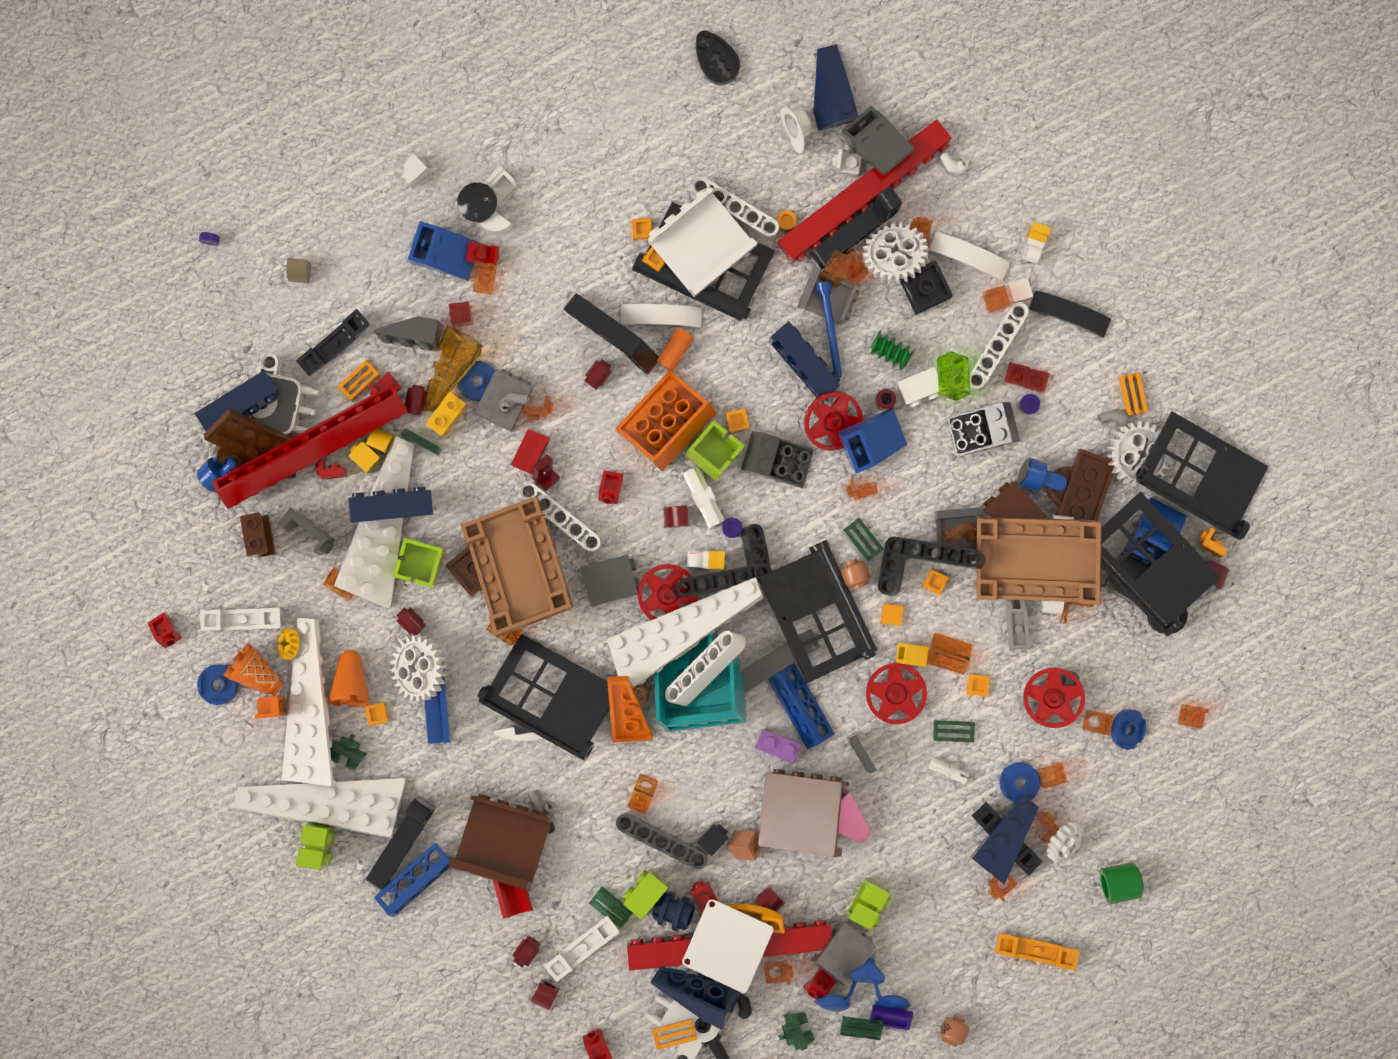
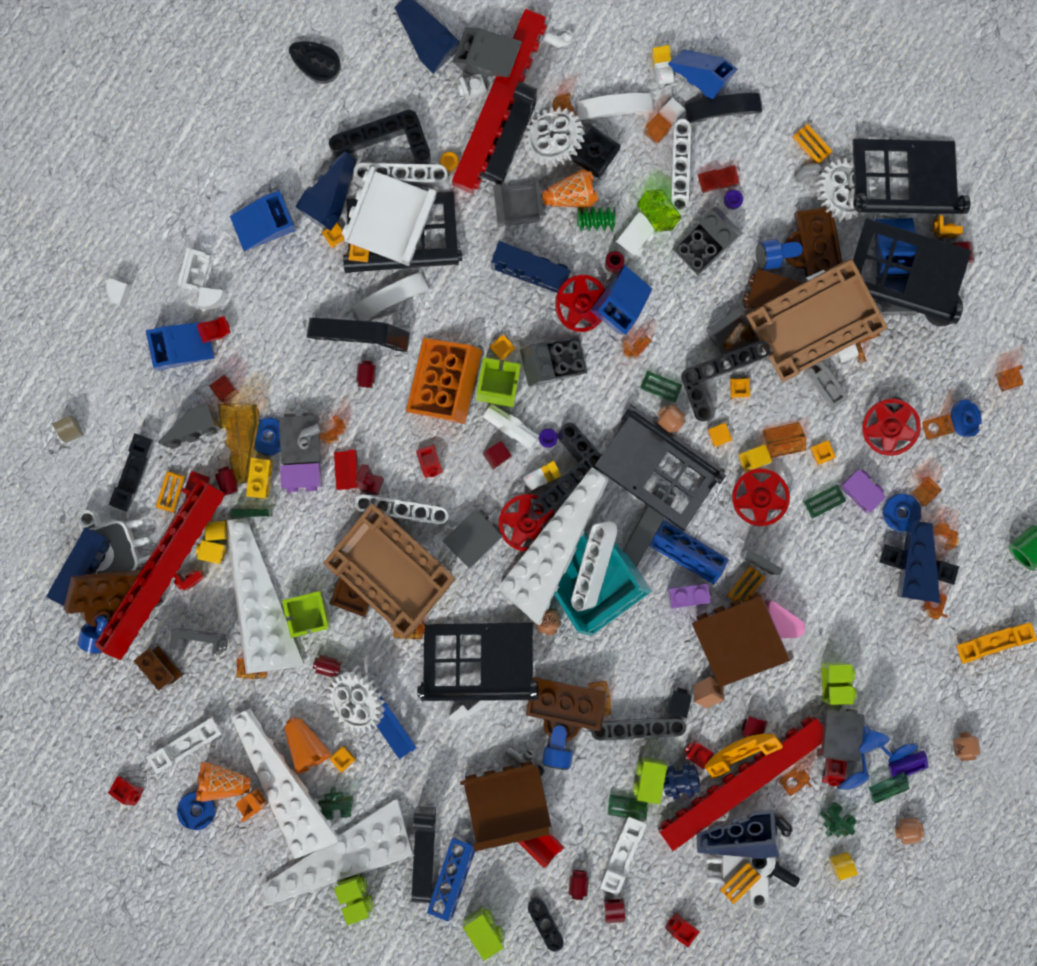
camera: 35 degrees left, 0 degrees up
(290, 650) = (237, 750): yellow gear -> none
(390, 505) = (255, 580): dark blue wedge -> none
(414, 945) = (484, 933): none -> lime piece
(471, 955) = (547, 939): none -> black beam
(477, 202) = (184, 288): black dish -> none
(484, 277) = (226, 347): clear orange bracket -> none
(485, 434) = (301, 476): none -> medium lavender brick
(583, 180) = (263, 221): none -> blue slope
(602, 788) = (565, 712): none -> reddish brown plate
(626, 713) = (548, 639): orange wing -> none
(654, 192) = (327, 197): none -> dark blue wedge
(675, 349) = (418, 318): orange brick -> none
(728, 946) = (743, 784): white piece -> none
(740, 162) = (384, 135): none -> black beam
(797, 125) = (413, 78): white piece -> none
(824, 290) = (513, 200): blue piece -> none
(835, 268) = (512, 177): clear orange bracket -> none
(852, 761) = (741, 579): none -> light orange tile
(855, 271) = (524, 168): clear orange bracket -> none
(882, 313) = (572, 191): none -> orange cone
(948, 770) = (839, 536): white axle -> none
(994, 741) = (863, 490): none -> medium lavender brick
(1065, 842) = (968, 540): white gear -> none
(1069, 270) = (704, 71): none -> blue slope

